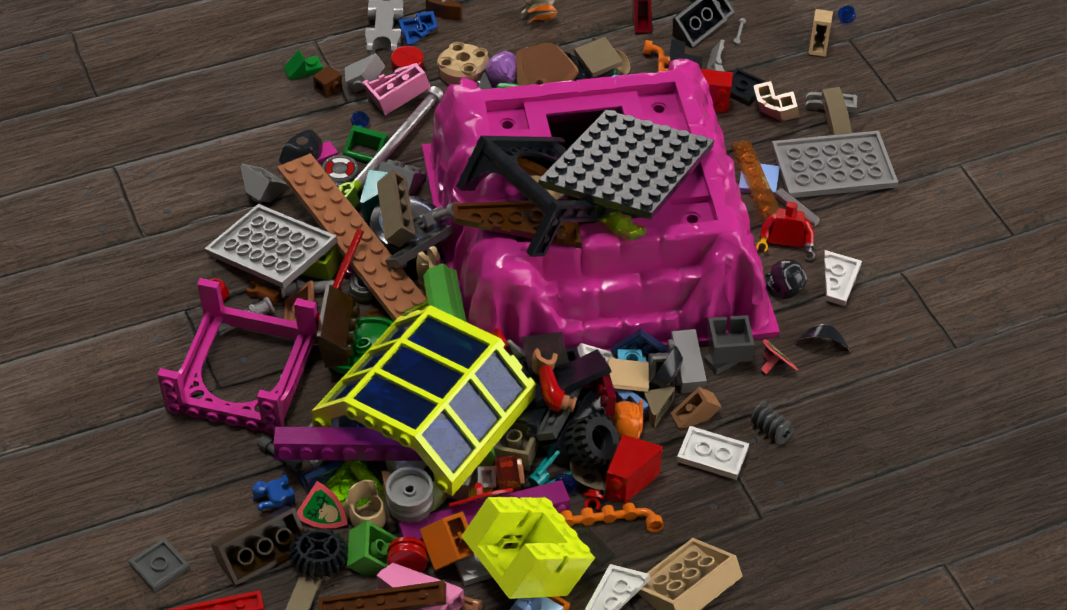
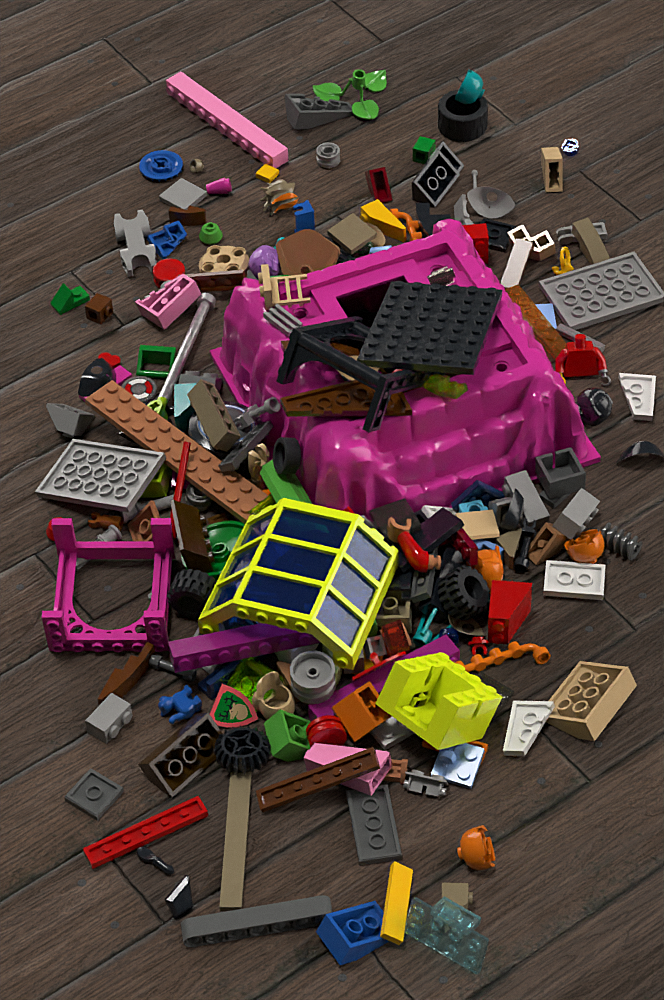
camera: 10 degrees left, 0 degrees up
(199, 491) = (109, 718): none -> light grey brick
(228, 455) = (123, 680): none -> reddish brown slope
(317, 379) = (190, 592): none -> black tyre
(325, 135) = (114, 360): none -> red tile
(360, 119) = (142, 338): clear blue tile -> none
(363, 70) = (131, 291): light grey slope -> none
(445, 76) = (218, 280): none -> reddish brown plate
(451, 263) = (286, 455): none -> black tyre
(461, 30) = (210, 233): none -> bright green cone
(481, 93) = (270, 289): none -> tan plate
(487, 120) = (284, 317): none -> light grey tile
(555, 32) = (304, 218): none -> blue hinge
(633, 47) = (379, 216): none -> yellow slope
(658, 114) = (442, 276): none -> clear smoke brick
(678, 396) = (528, 534): none -> black bar
(734, 385) = (577, 514): none -> light grey brick
(734, 422) = (586, 547): none -> orange cylinder
(737, 52) = (480, 203): none -> light grey piece
(754, 119) = (517, 263): none -> tile
(772, 359) = (602, 483): coral shield -> none
(803, 132) = (564, 262): none -> yellow piece

